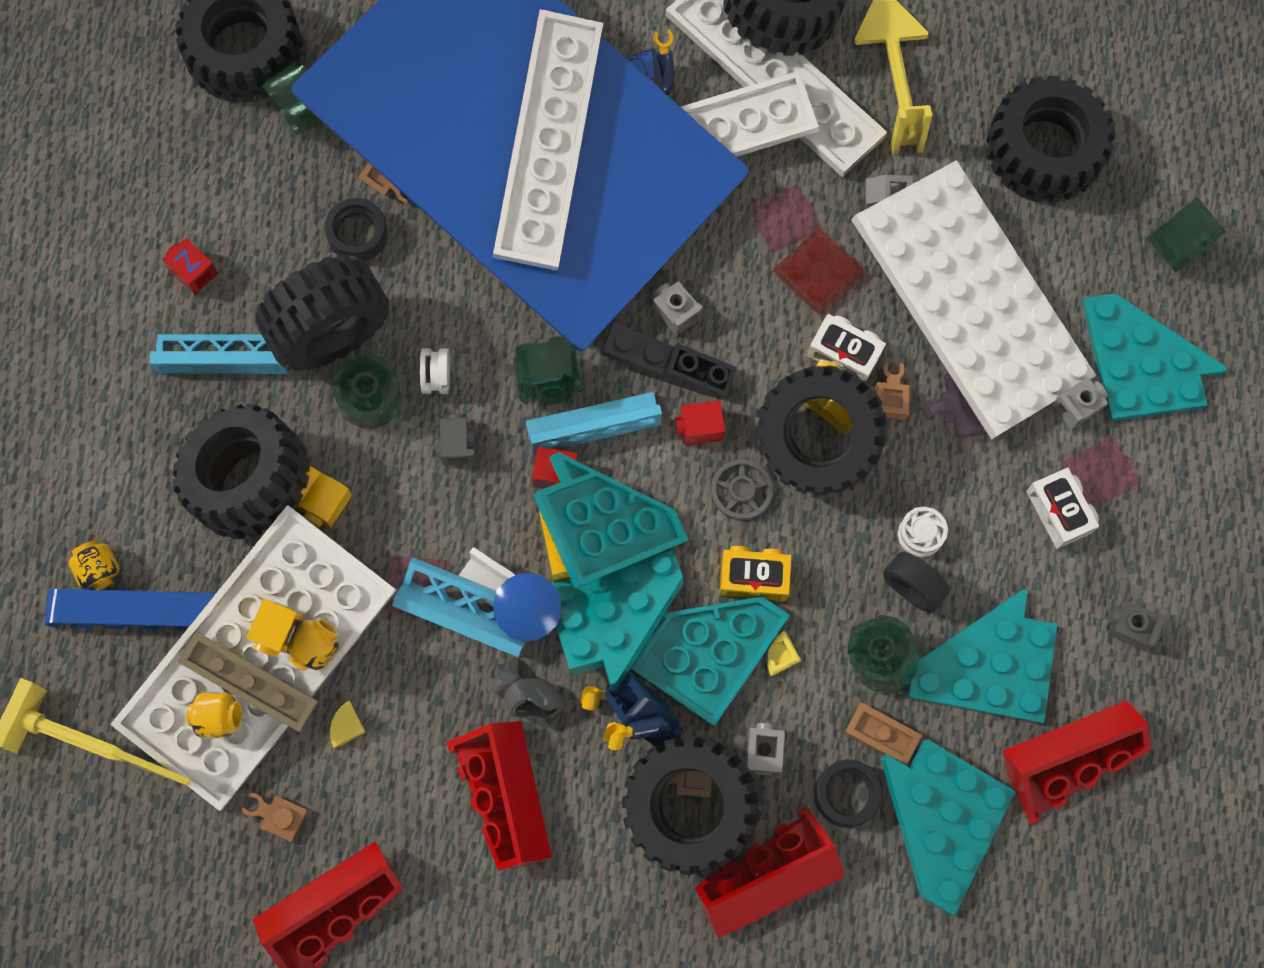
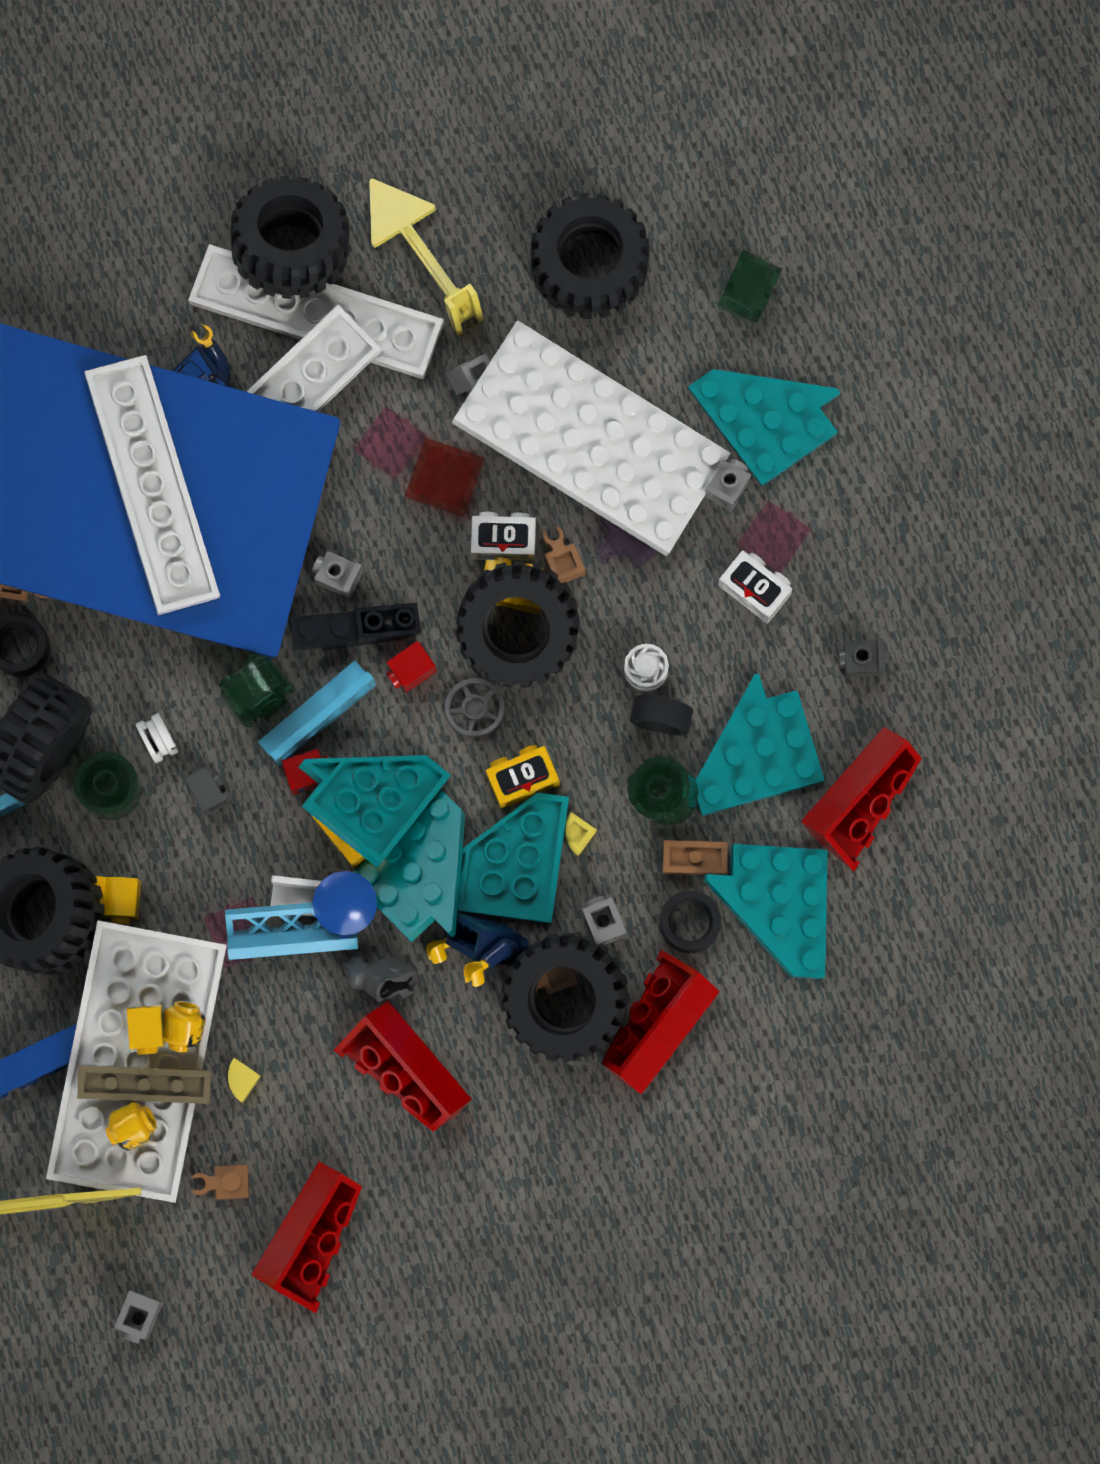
camera: 20 degrees left, 5 degrees up
(109, 904) = (133, 1304): none -> light grey brick

